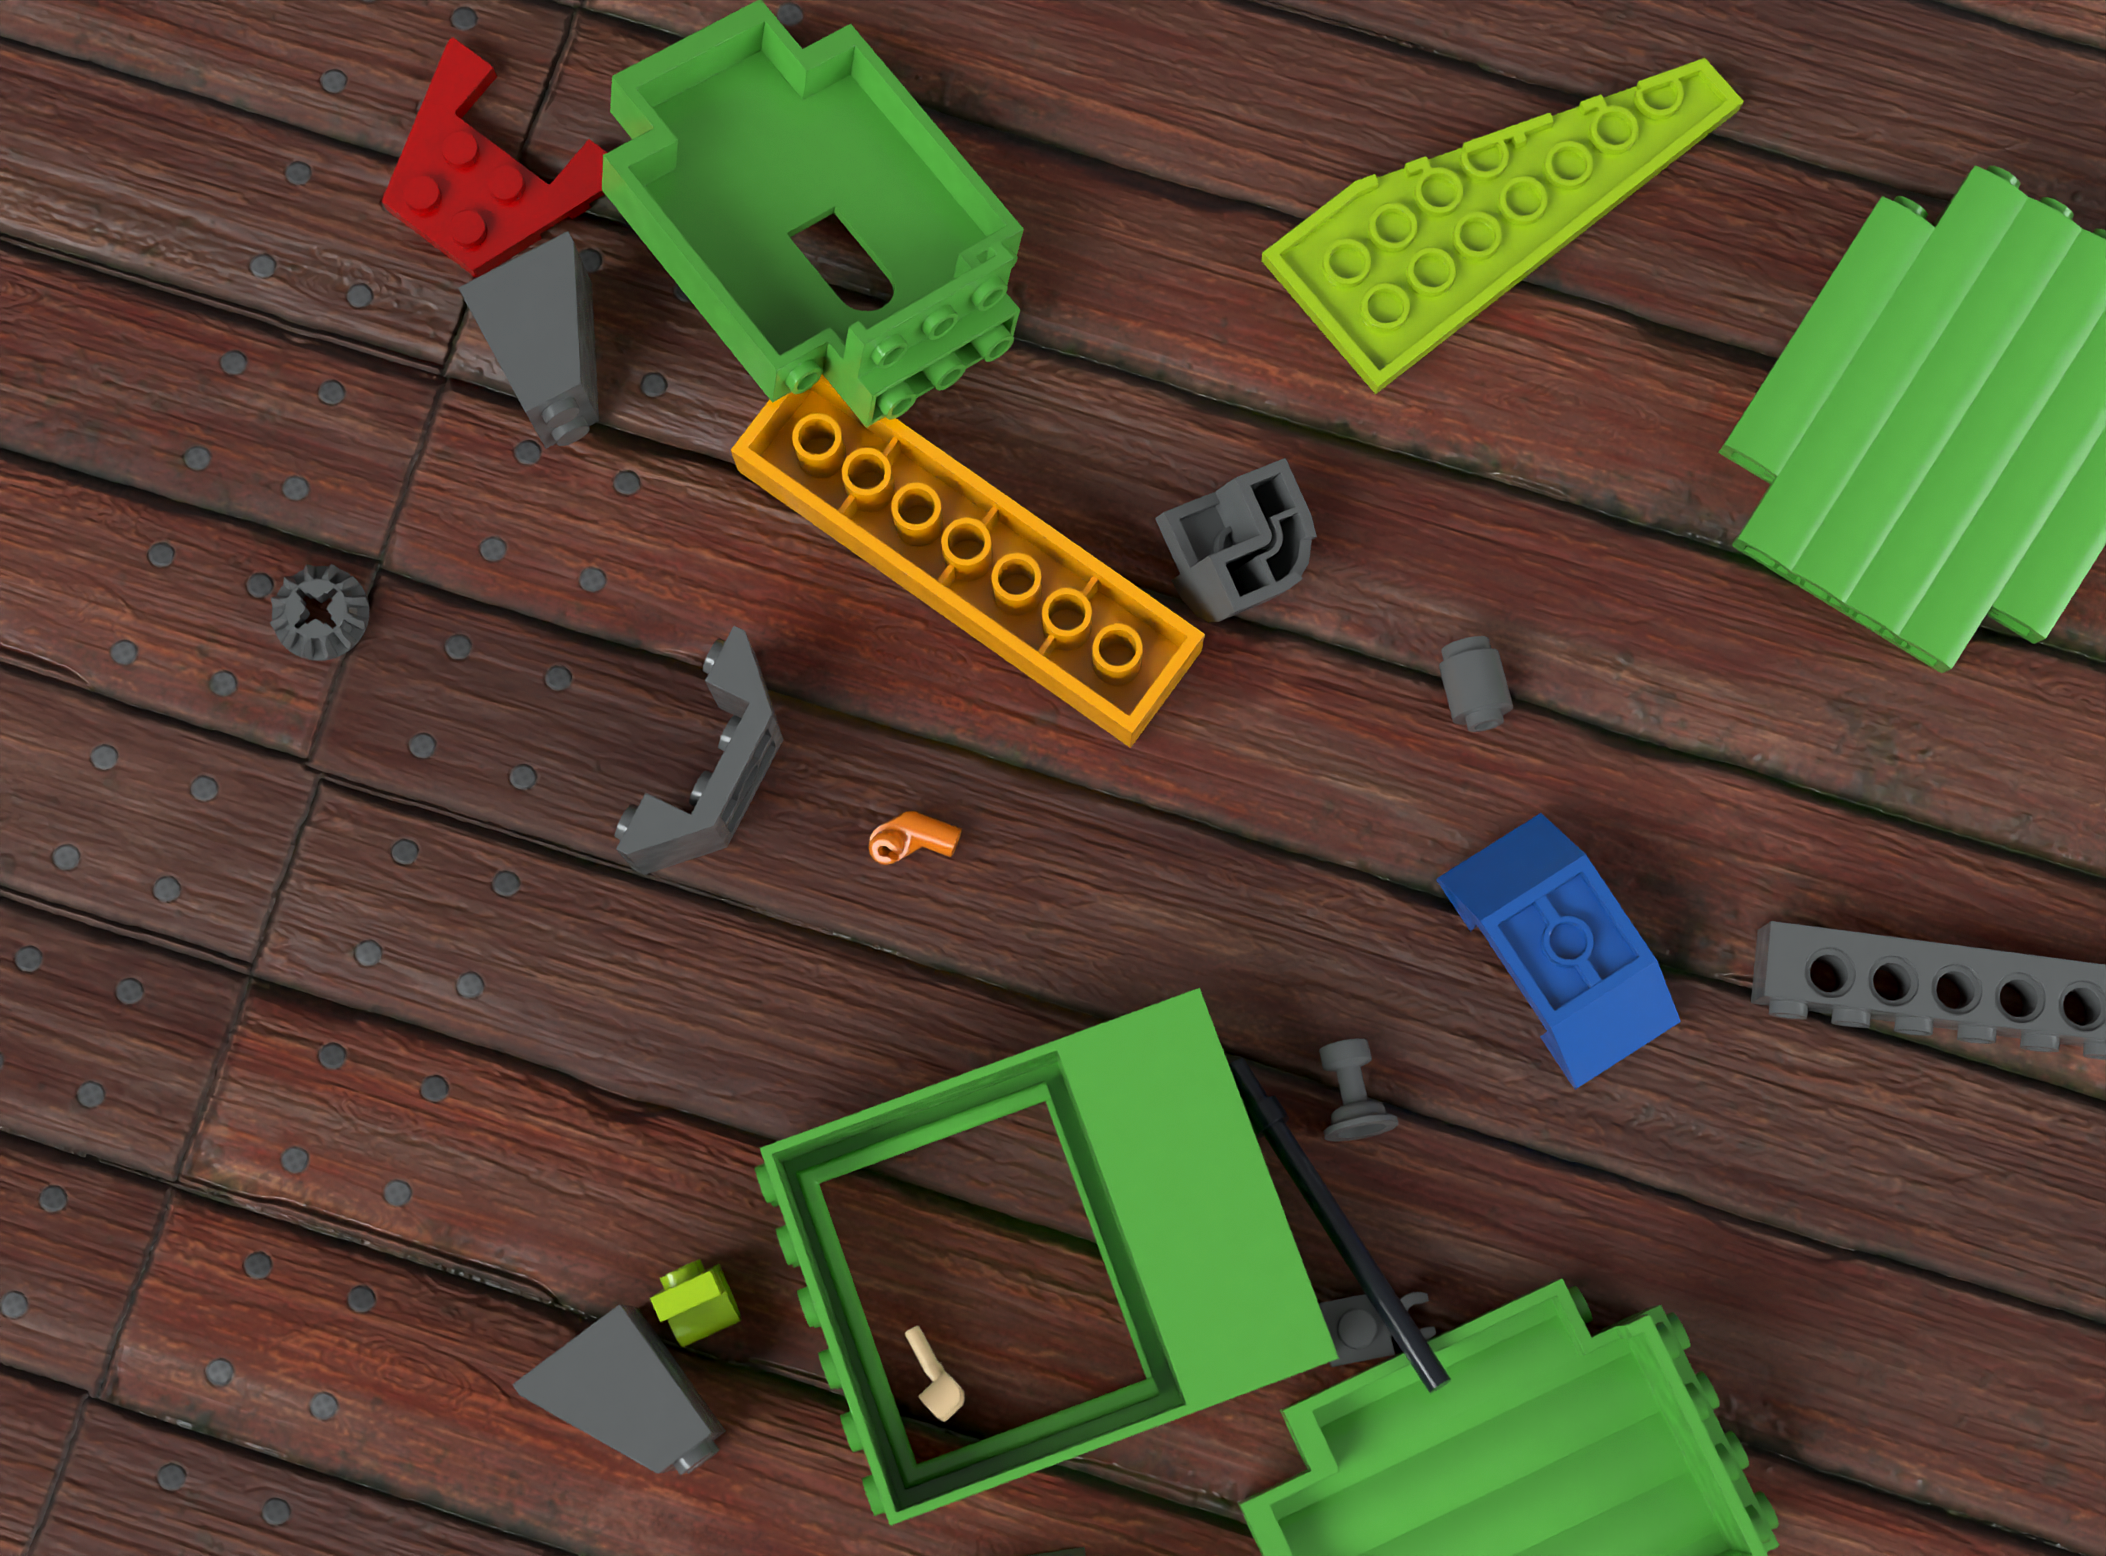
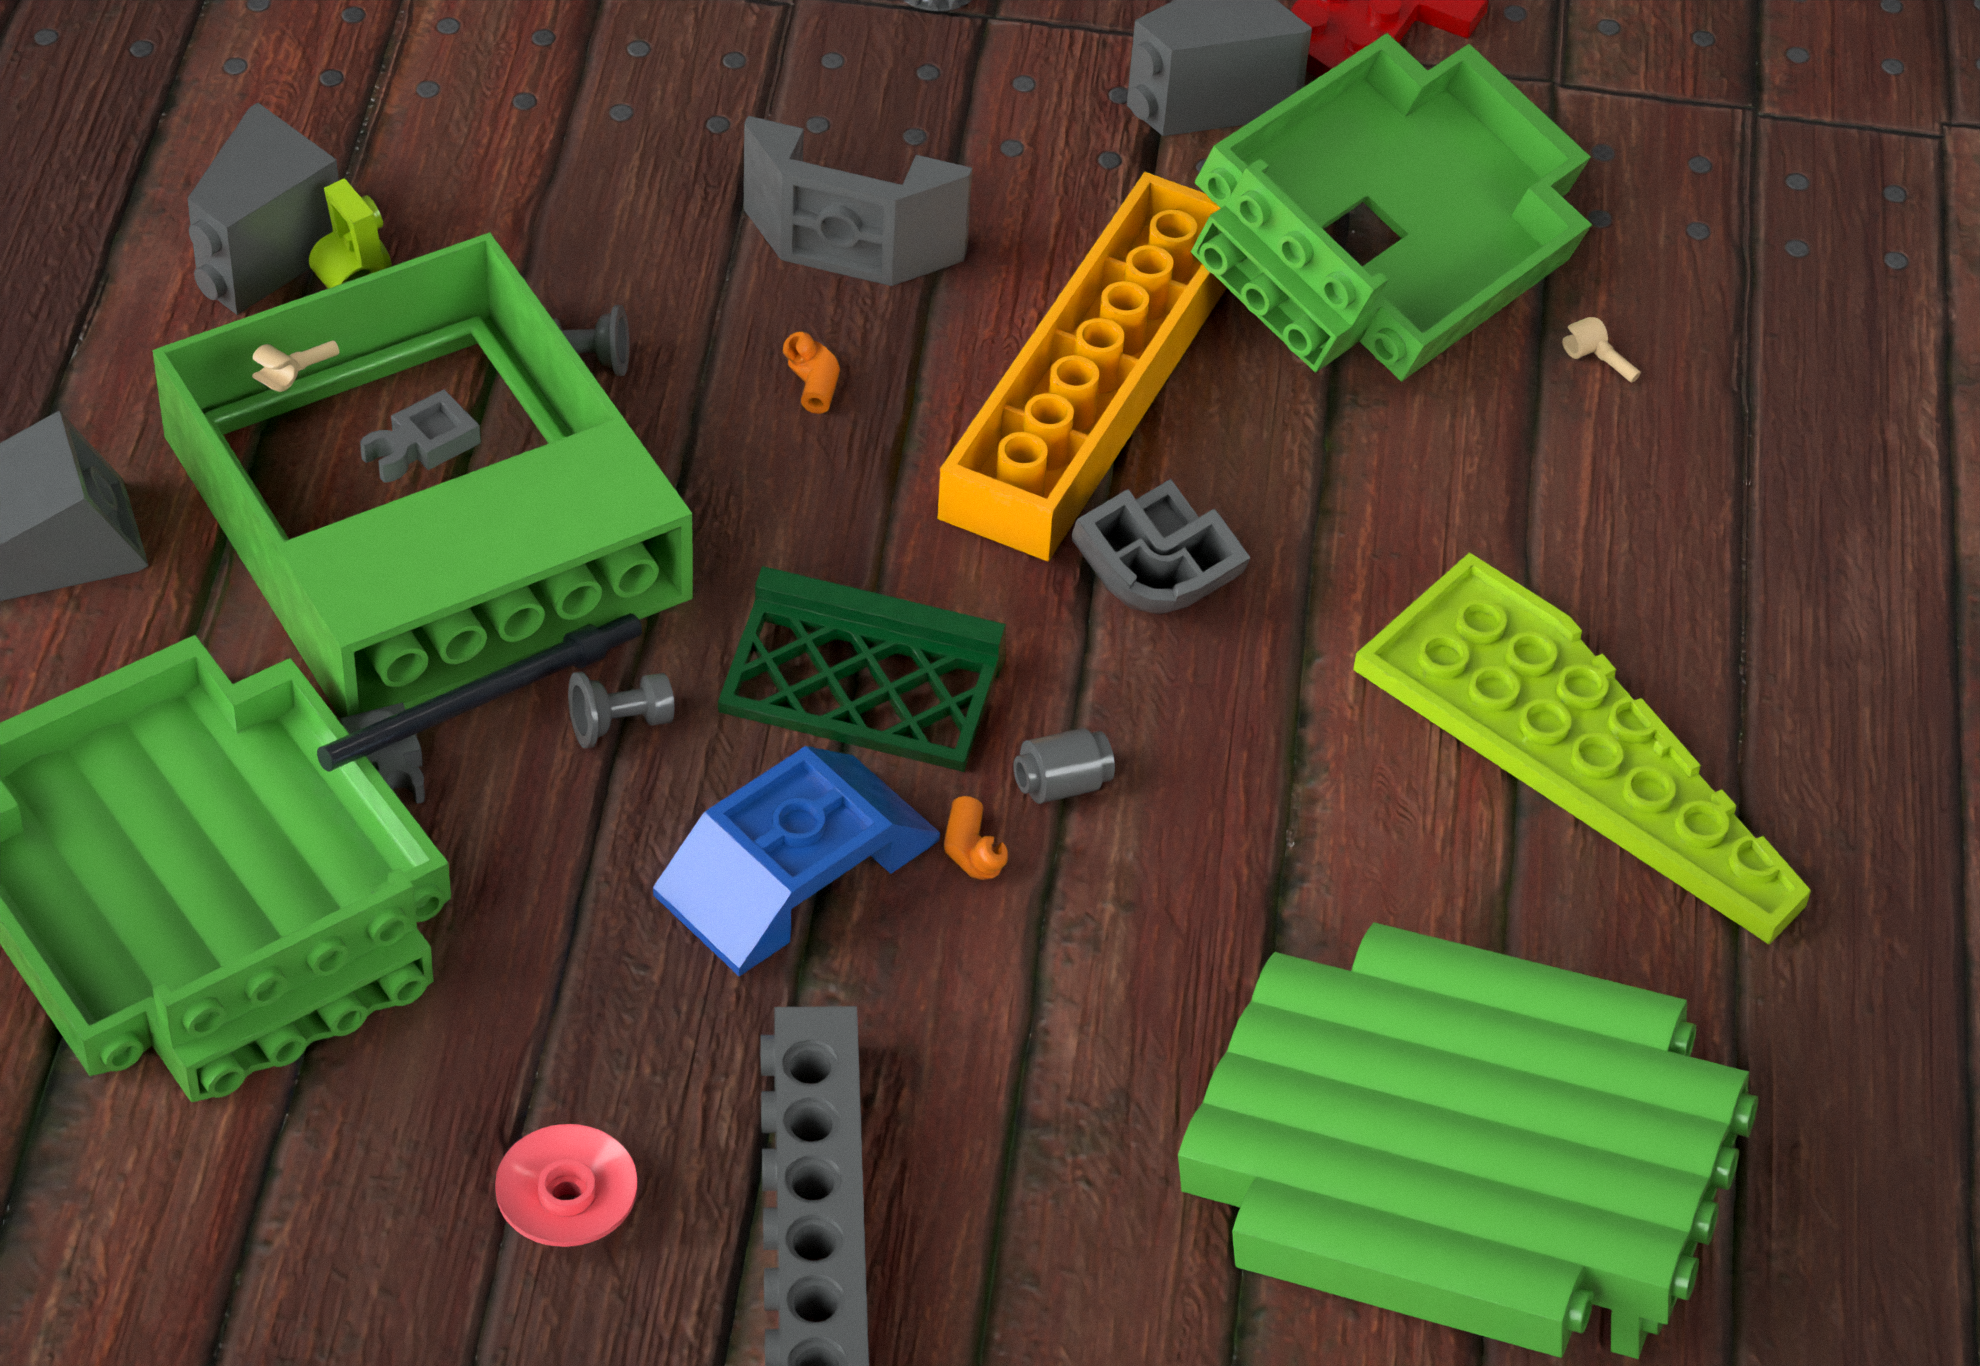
camera: 75 degrees right, 30 degrees down
(853, 1044) = (607, 340): none -> dark grey piece
(974, 65) = (1591, 336): none -> tan hand
(1067, 1241) = (423, 432): none -> dark grey plate
(1282, 831) = (887, 627): none -> dark green fence
(1552, 790) = (965, 844): none -> orange arm
(1945, 1203) = (565, 1162): none -> coral dish

